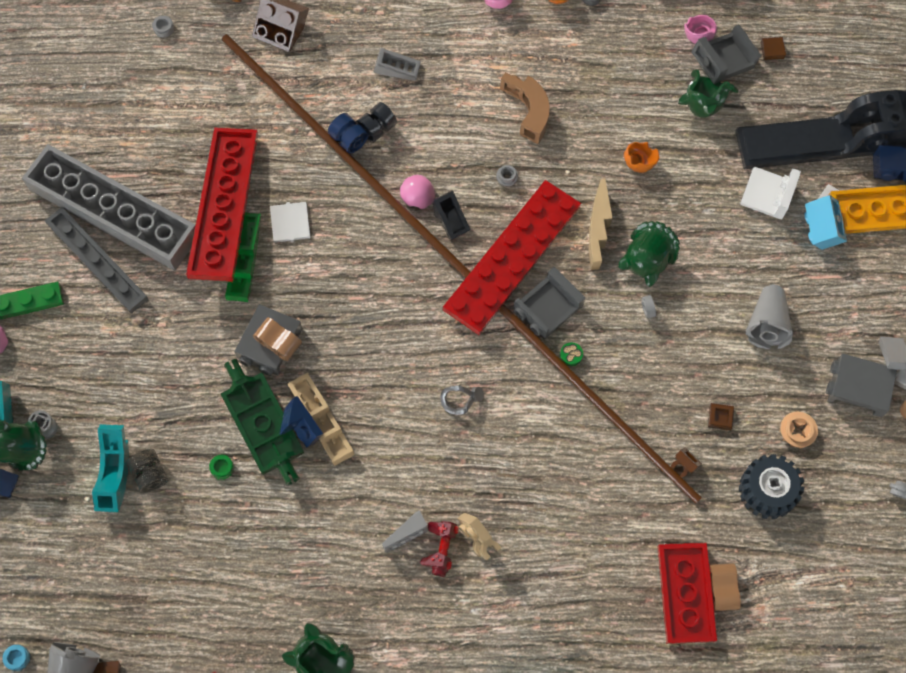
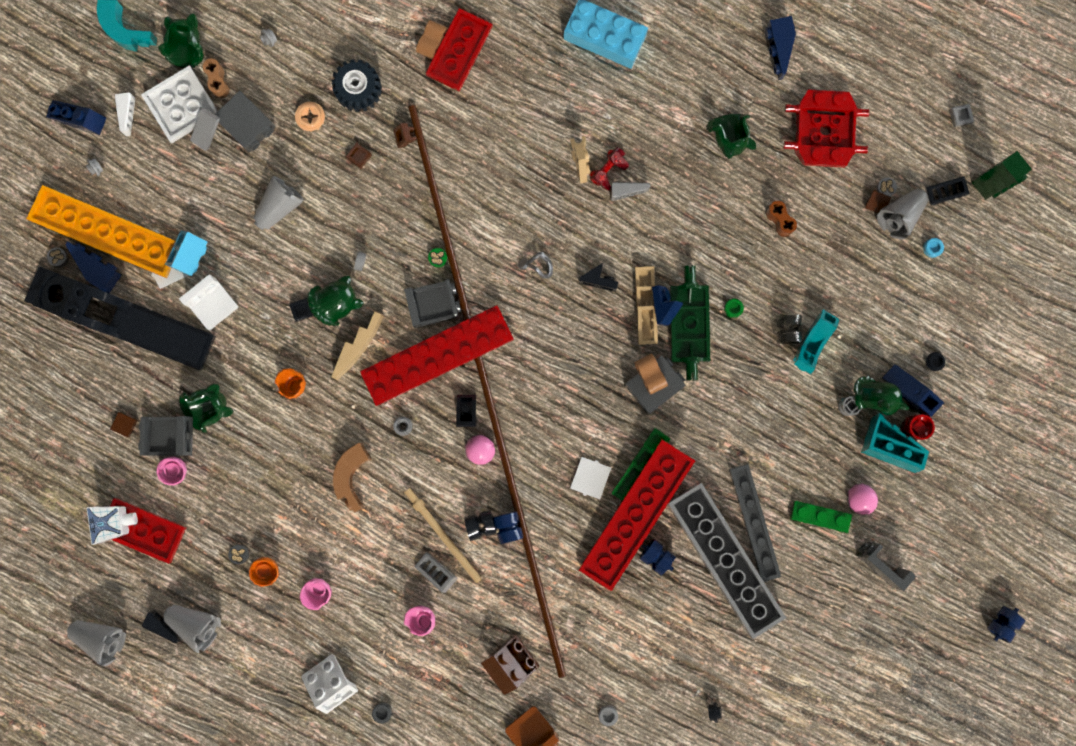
camera: 150 degrees left, 15 degrees up
(58, 73) = (715, 712): none -> black plate
(178, 177) = (654, 555): none -> dark blue wheel
(213, 592) = (781, 218): none -> dark orange axle
(387, 17) = (420, 620): none -> bright pink hair
(391, 414) = (593, 279): none -> black slope
(447, 113) = (419, 506): none -> tan bar
(680, 230) = (301, 310): none -> black tile

